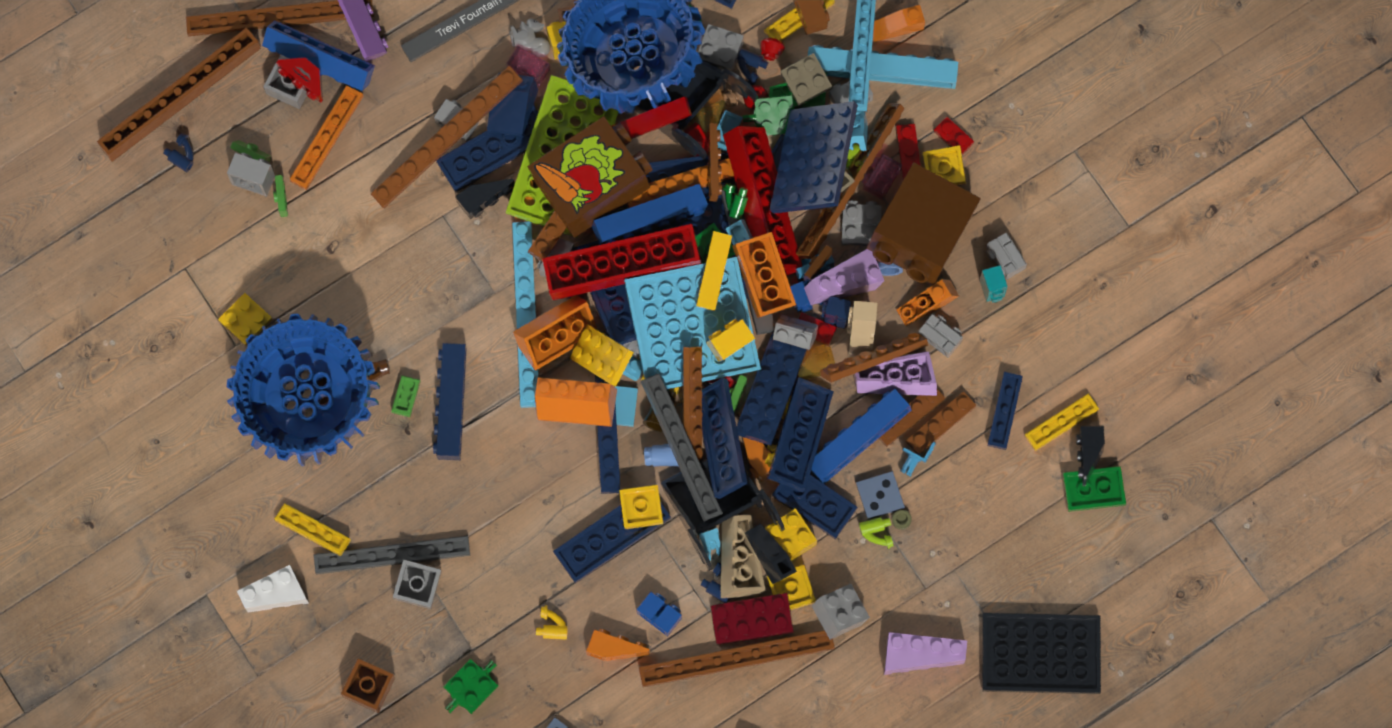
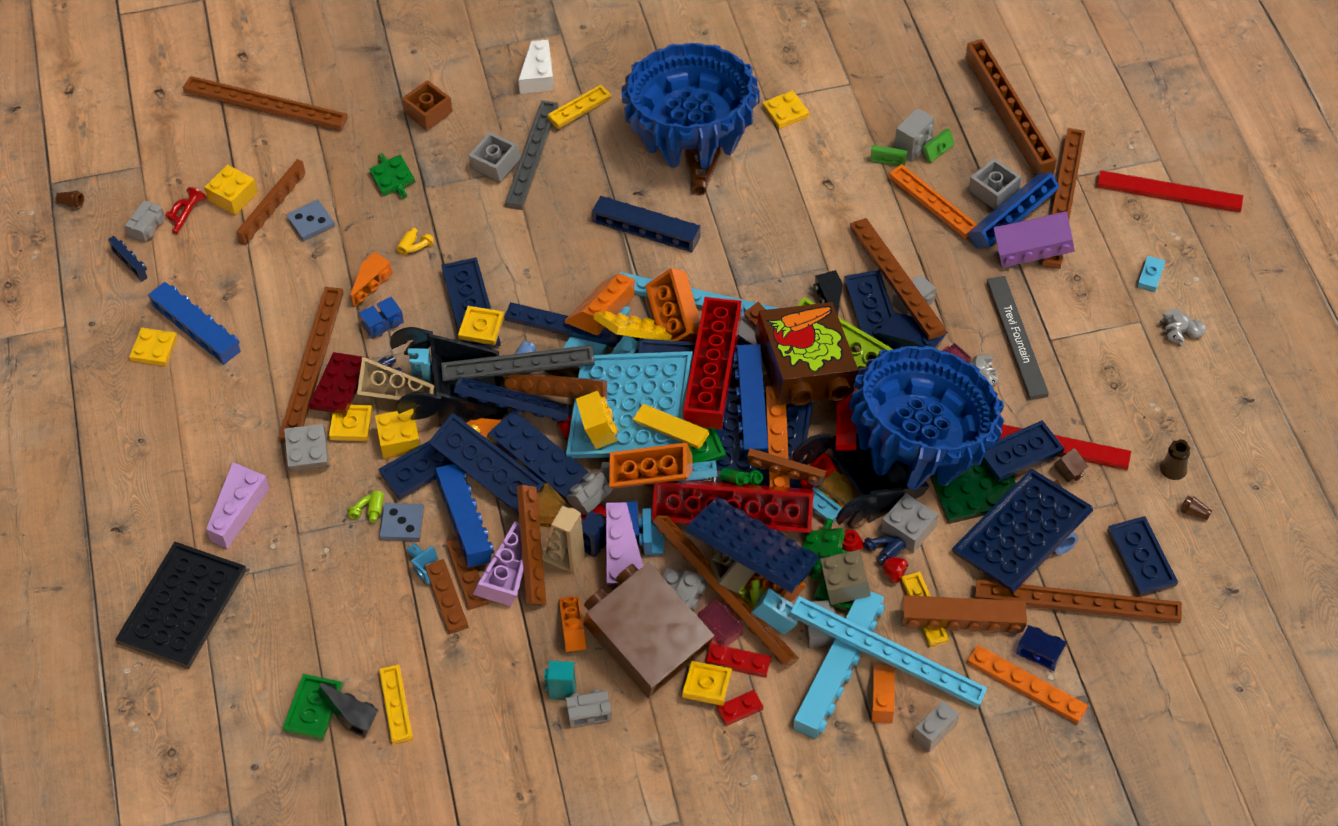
camera: 110 degrees right, 20 degrees down
(178, 159) = (949, 101): dark blue plant -> none
(304, 76) = (989, 183): red slope -> none
(406, 396) = (666, 195): bright green plate -> none
(737, 392) = (552, 432): bright green plate -> none
(770, 554) = (379, 402): black slope -> none
(817, 263) = (644, 521): reddish brown plate -> none
(901, 519) = (370, 532): olive tile -> none
(941, 335) = (532, 621): light grey brick -> none
(1005, 410) = (431, 654): dark blue plate -> none

